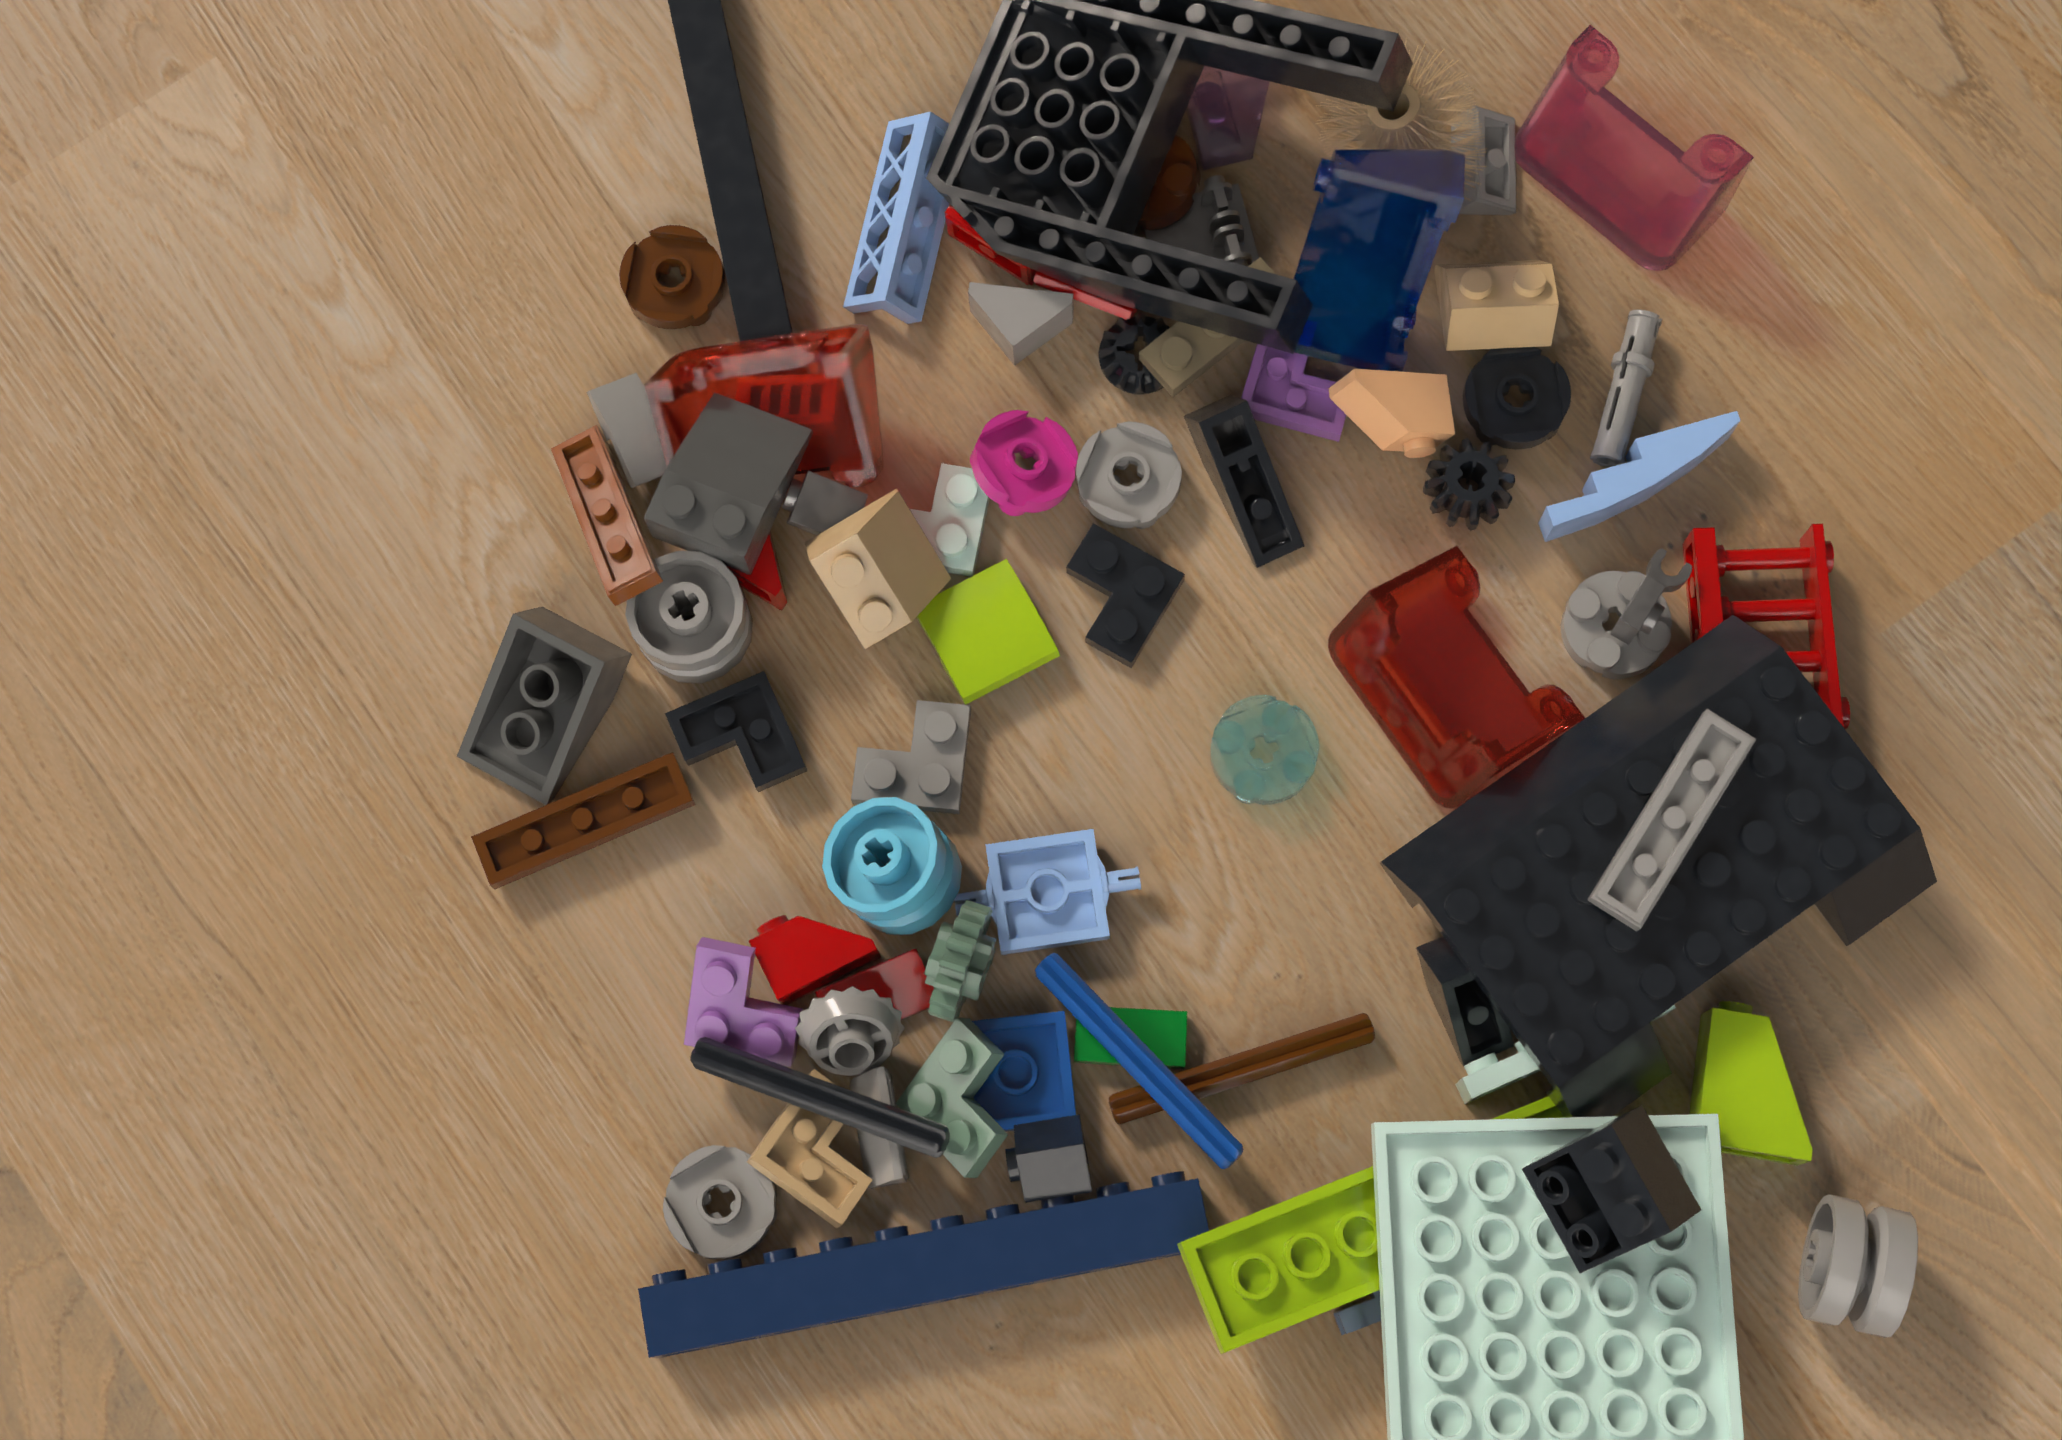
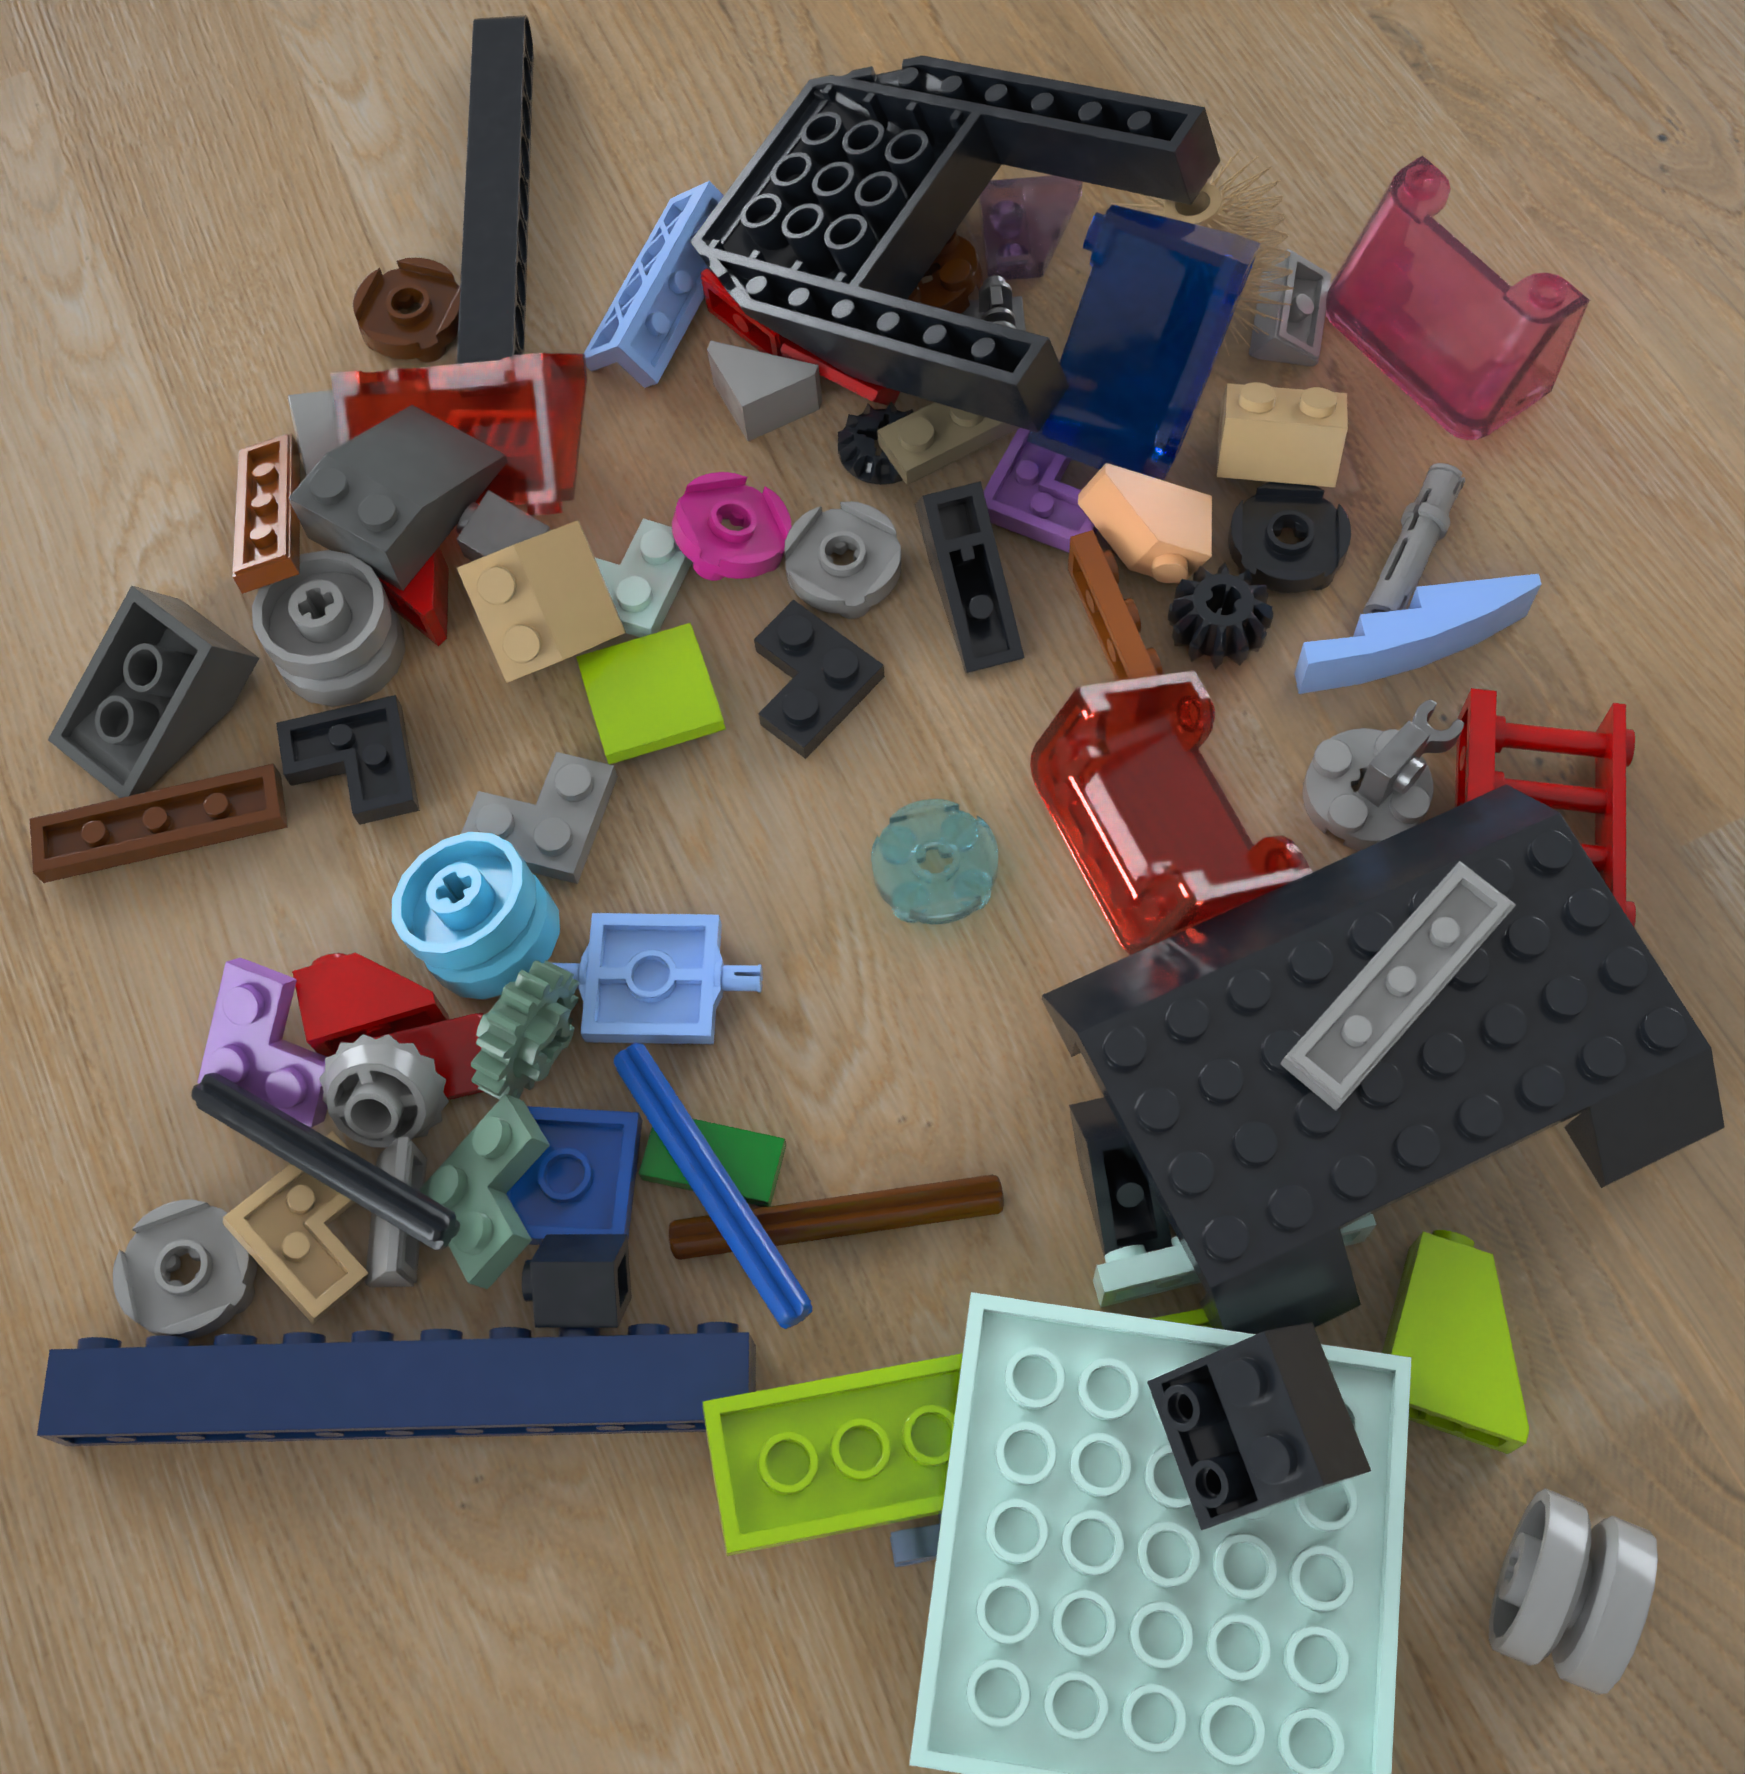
camera: 10 degrees right, 10 degrees down
(1377, 500) = (1111, 616): none -> dark orange plate

